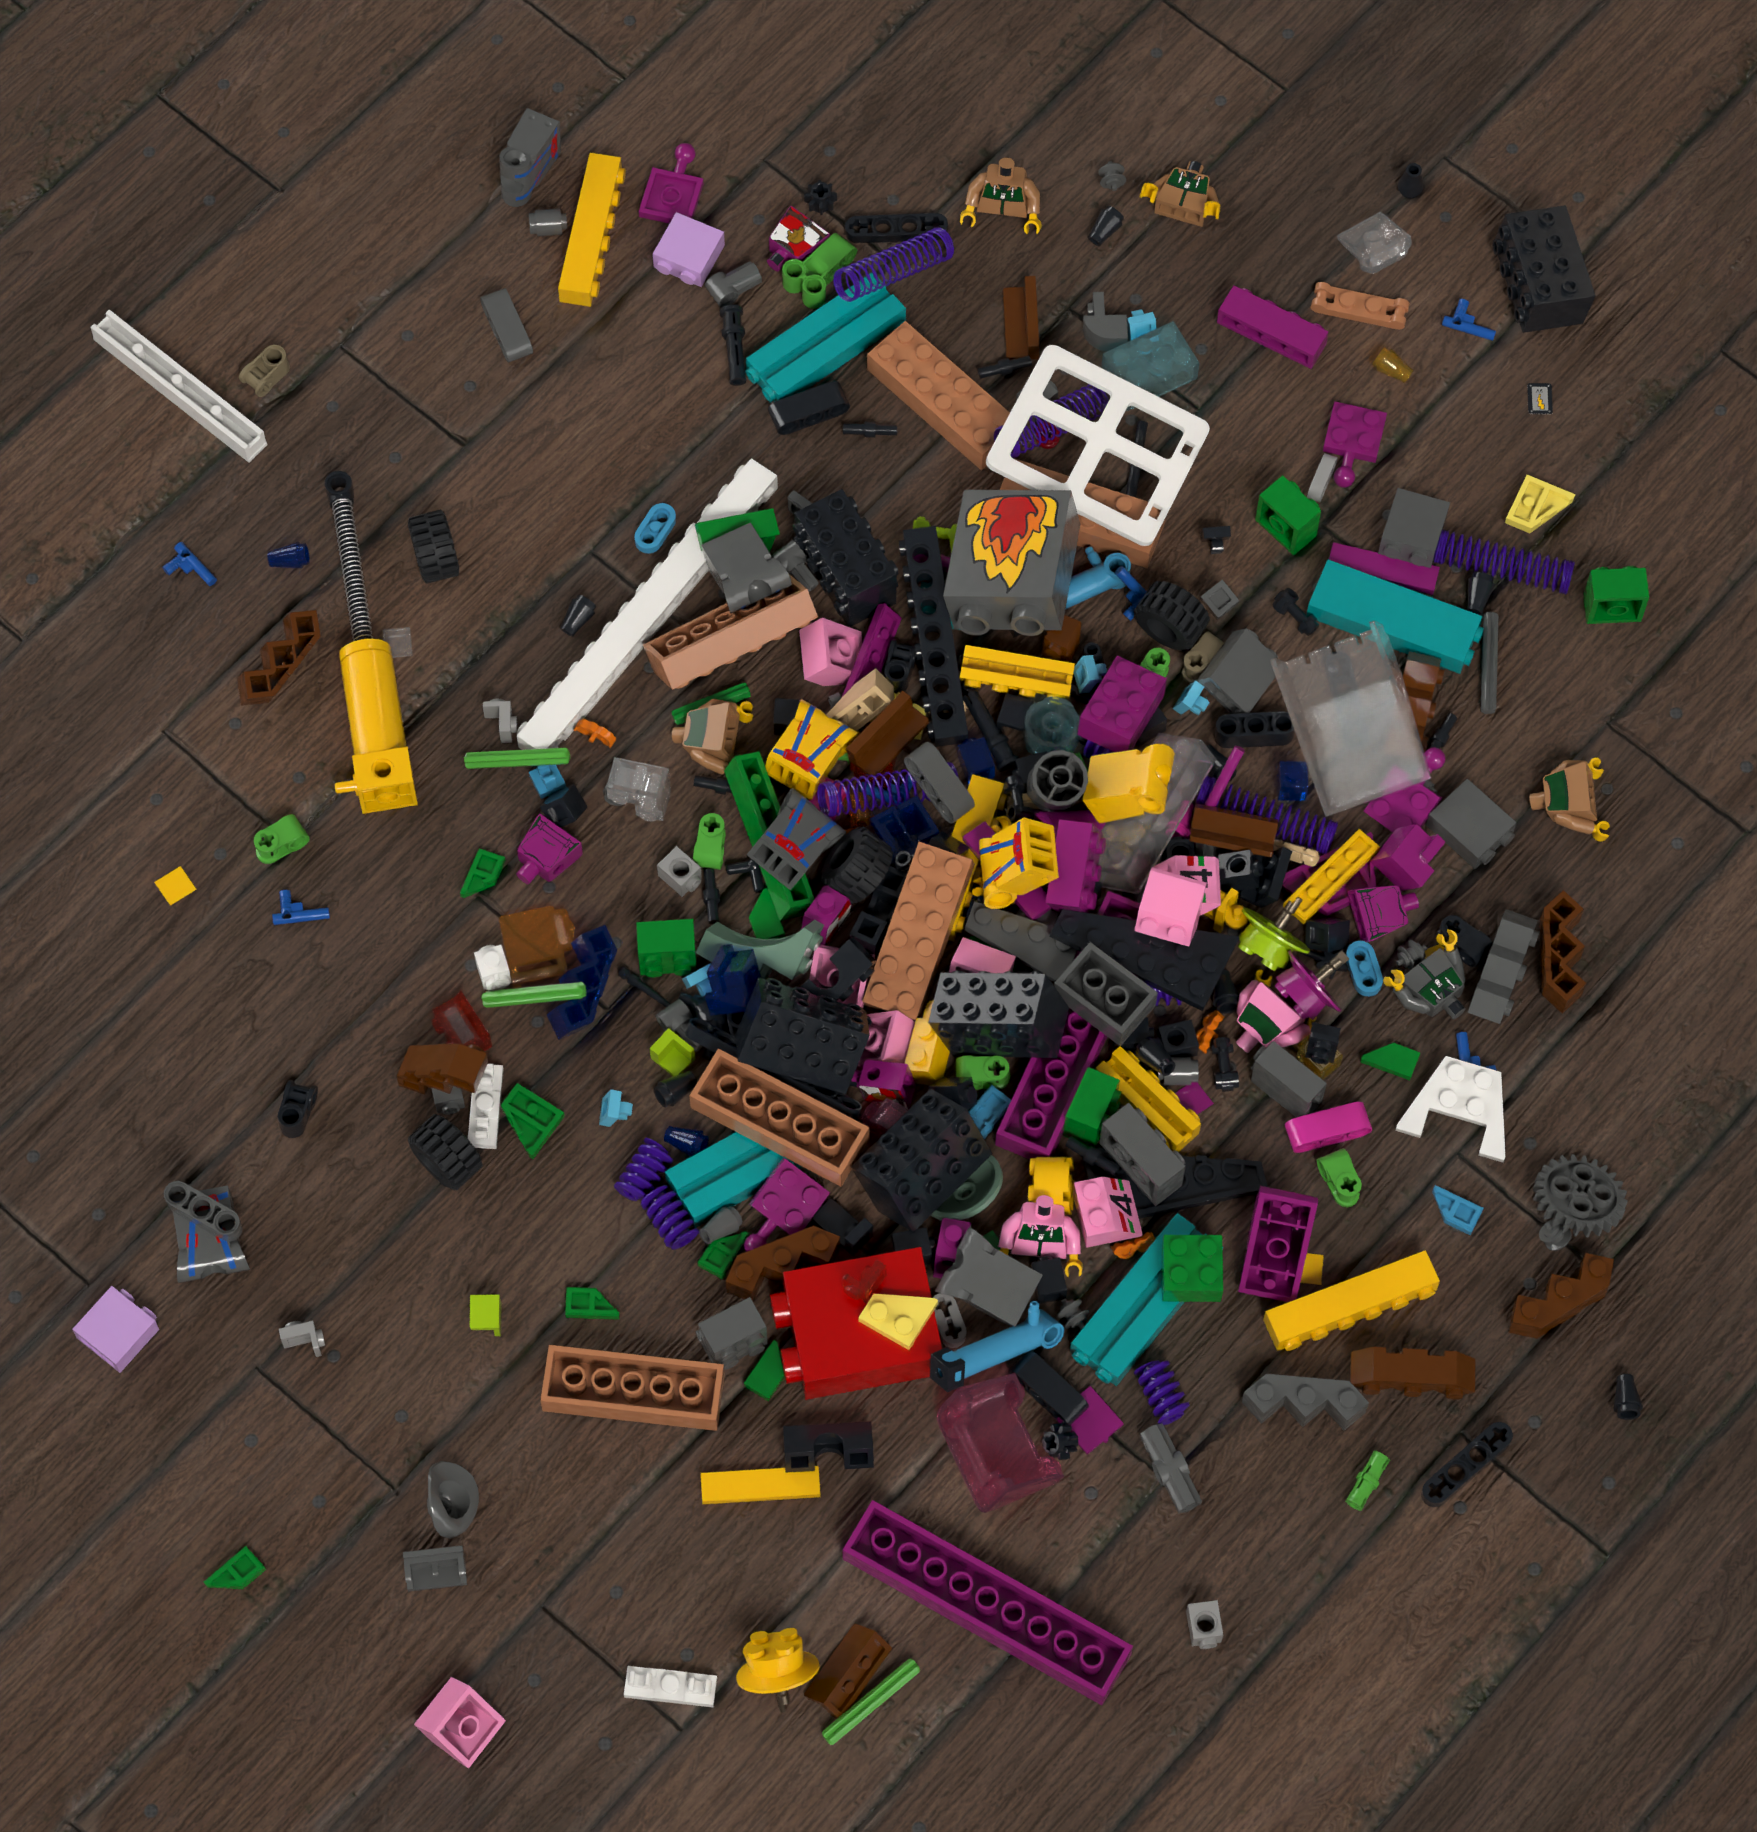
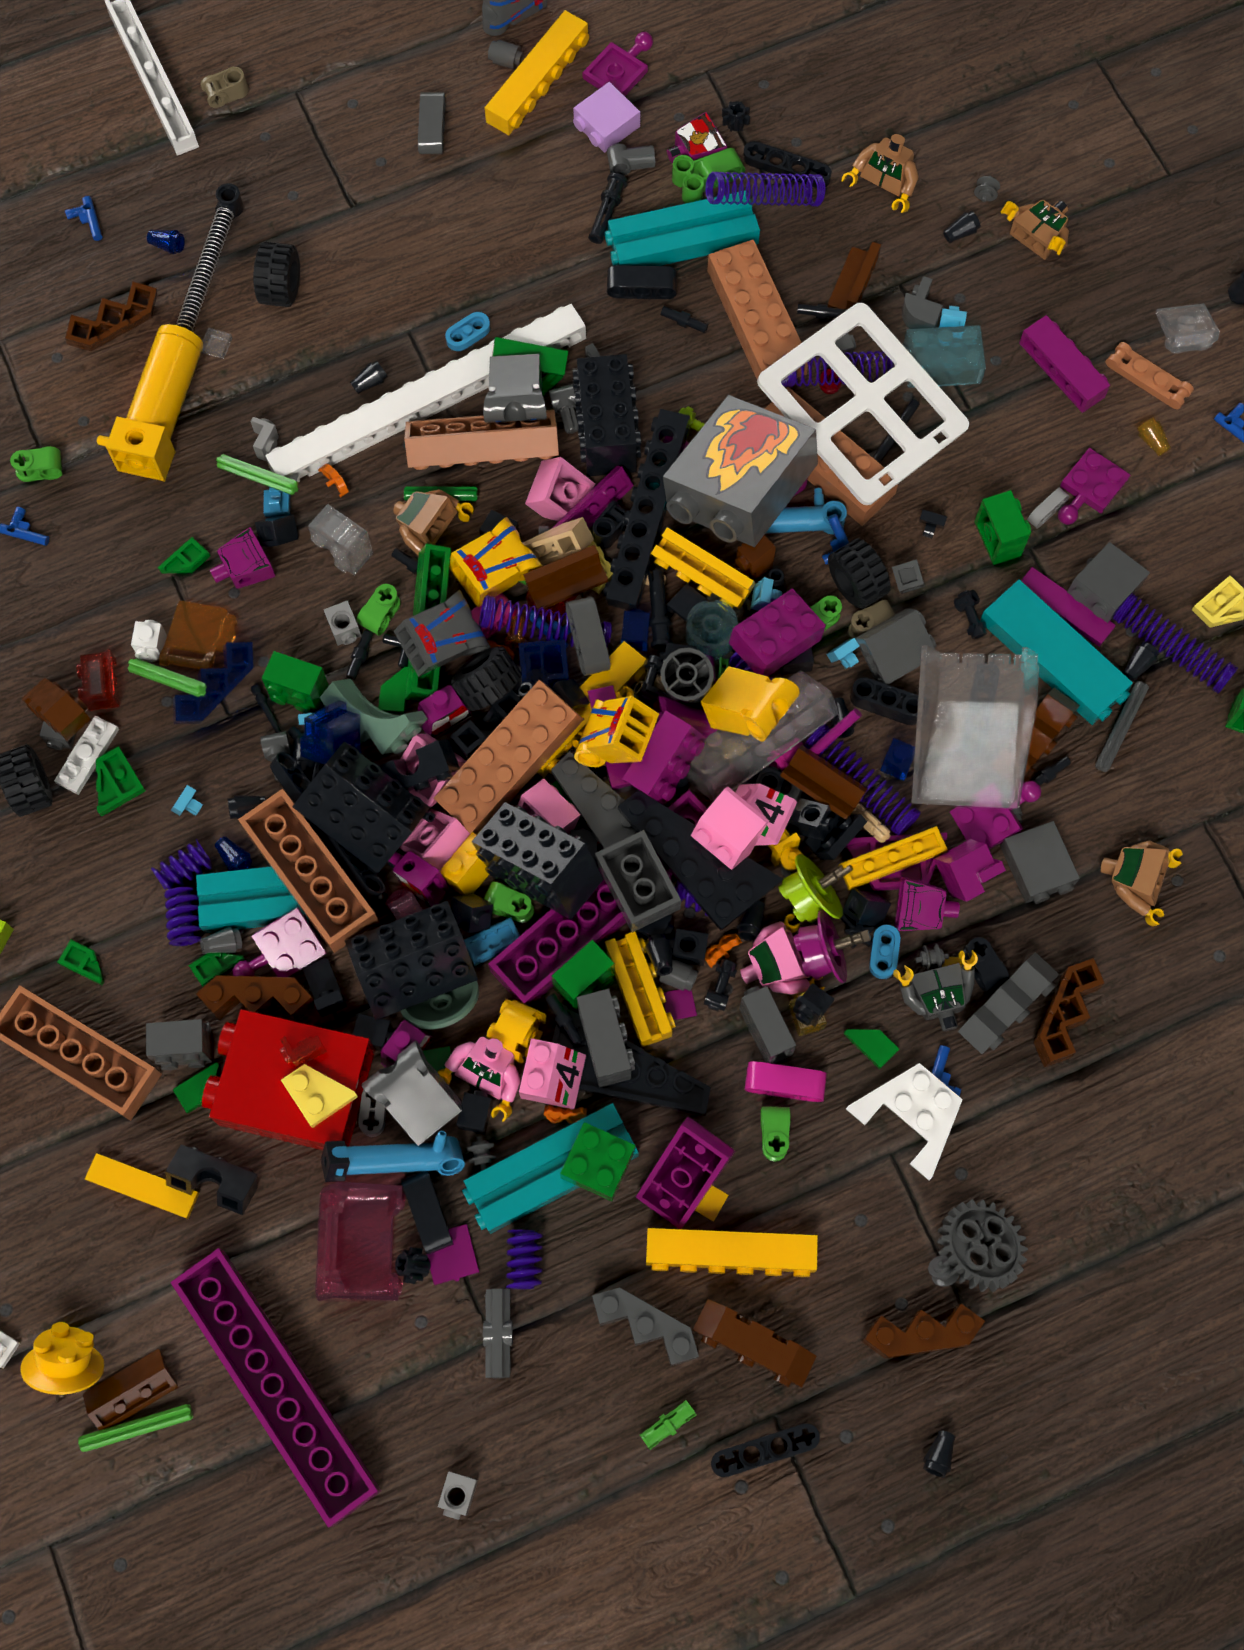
camera: 25 degrees right, 5 degrees up
(672, 1053) = (258, 775): lime panel -> none
(1457, 1210) = (866, 1208): dark azure tile -> none

